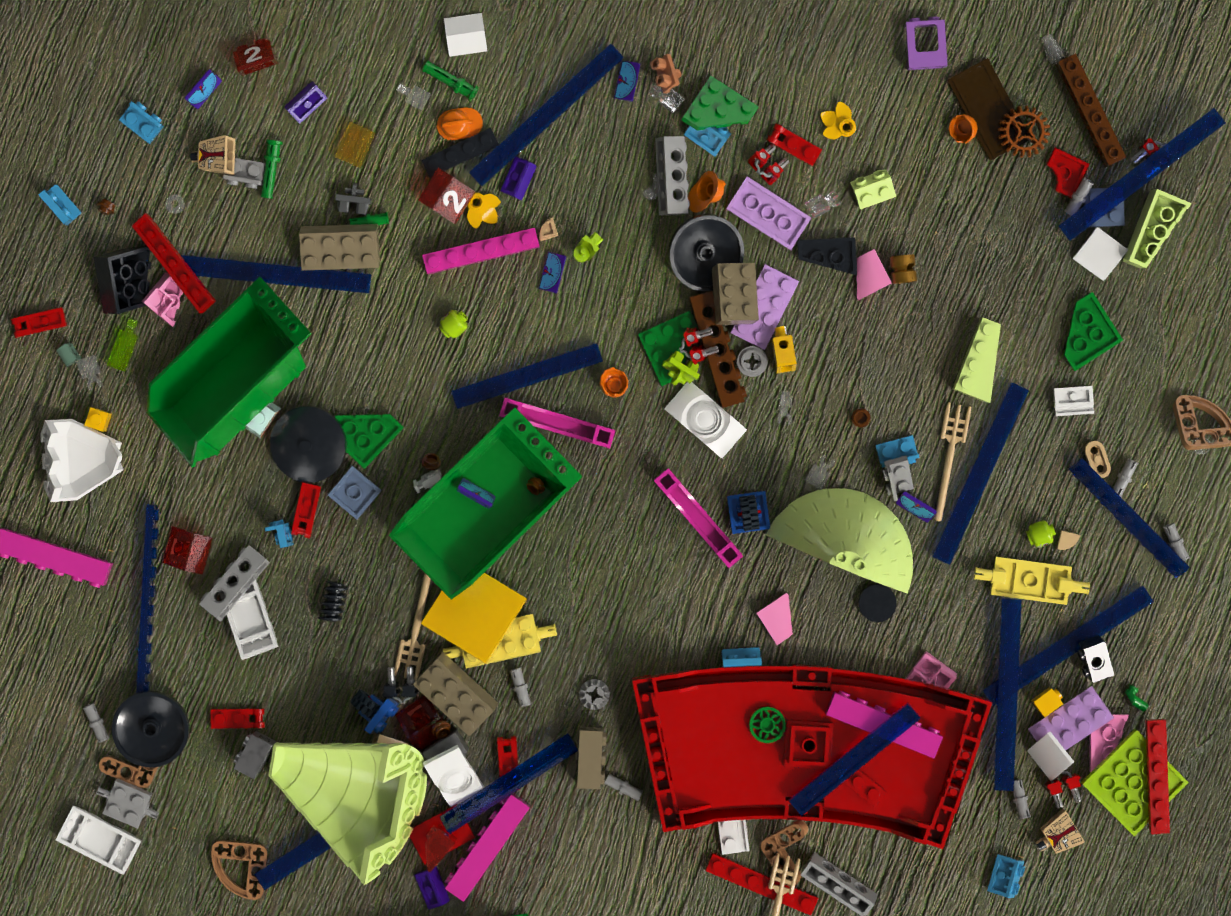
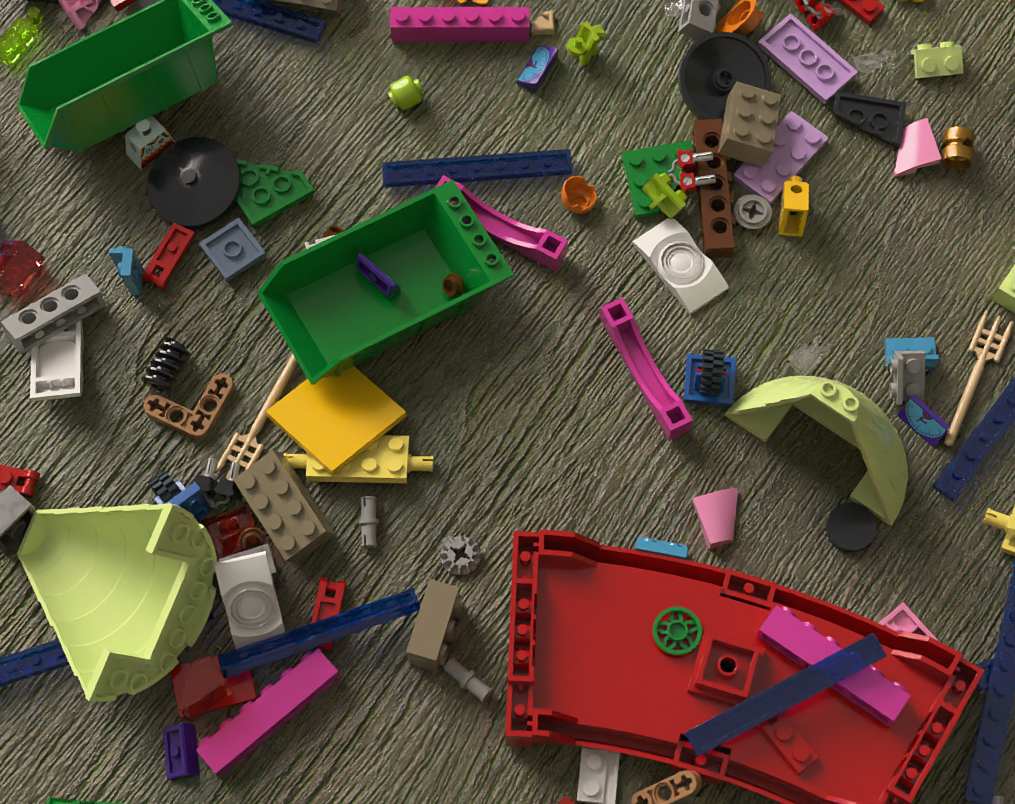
camera: 15 degrees right, 20 degrees down
(362, 636) = (192, 417): none -> medium nougat beam
(785, 402) = (783, 264): clear plate -> none
(860, 417) = (873, 304): reddish brown plate -> none

